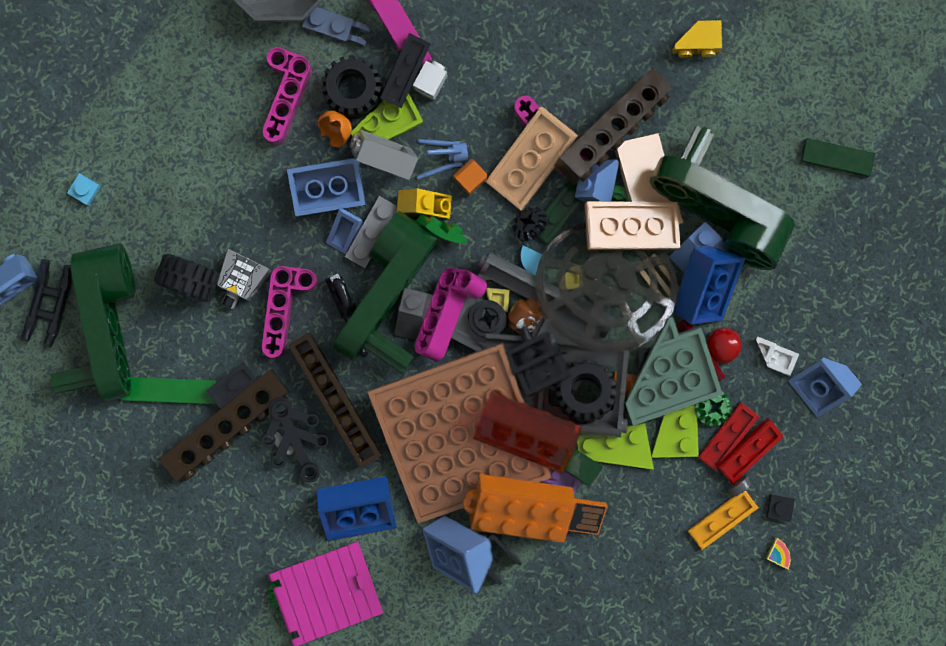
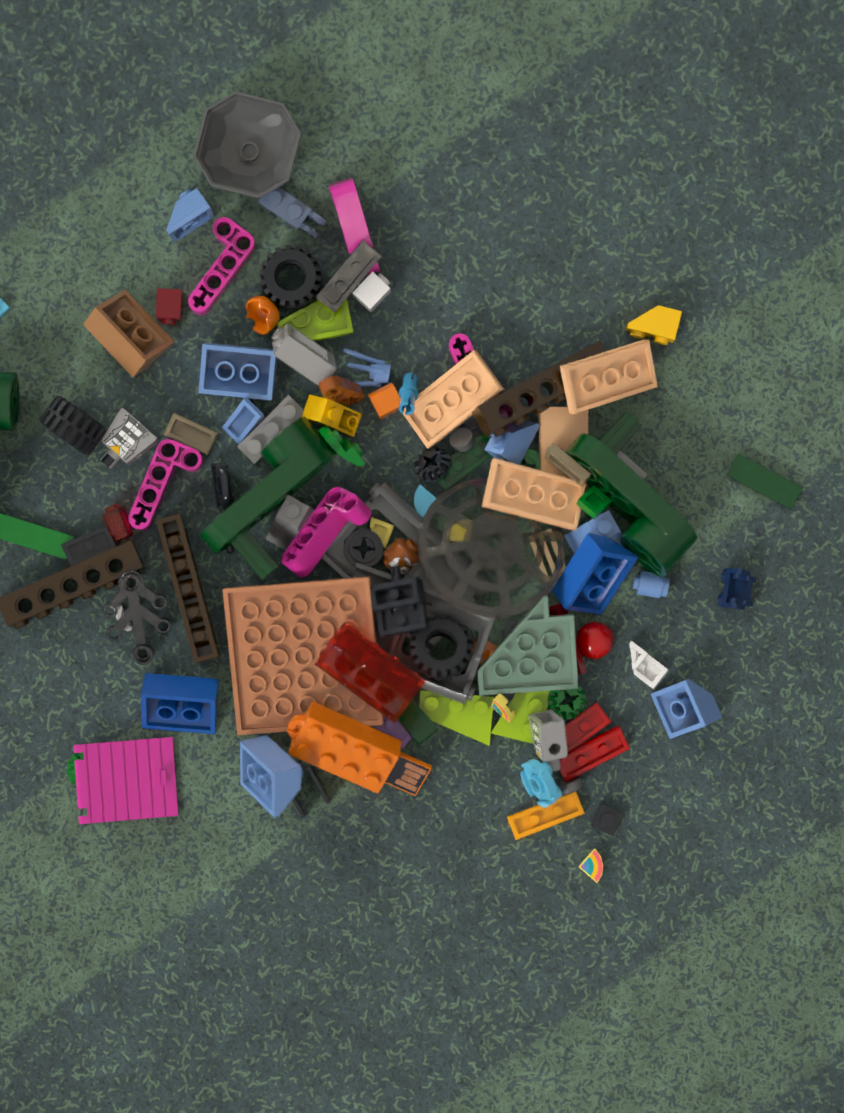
camera: 15 degrees right, 0 degrees up
(215, 178) = (128, 332): none -> medium nougat slope
(242, 54) = (188, 214): none -> medium blue slope
(247, 143) = (169, 306): none -> dark red brick
(253, 356) = (117, 522): none -> clear red brick
(298, 256) = (190, 434): none -> dark tan tile
(427, 177) = (341, 390): none -> dark orange beam
(490, 164) = (408, 393): none -> dark azure pin
(550, 194) = (462, 439): none -> dark grey tile
(654, 430) = (499, 705): none -> light yellow tile
(656, 189) = (567, 465): none -> dark tan tile
(670, 98) = (608, 376): none -> light nougat tile
(689, 218) = (594, 502): none -> green tile
(708, 447) = (548, 737): none -> light grey torso
(709, 489) = (539, 782): none -> medium azure plate
(761, 280) = (650, 584): none -> medium blue brick
(842, 262) = (736, 589): none -> dark blue piece

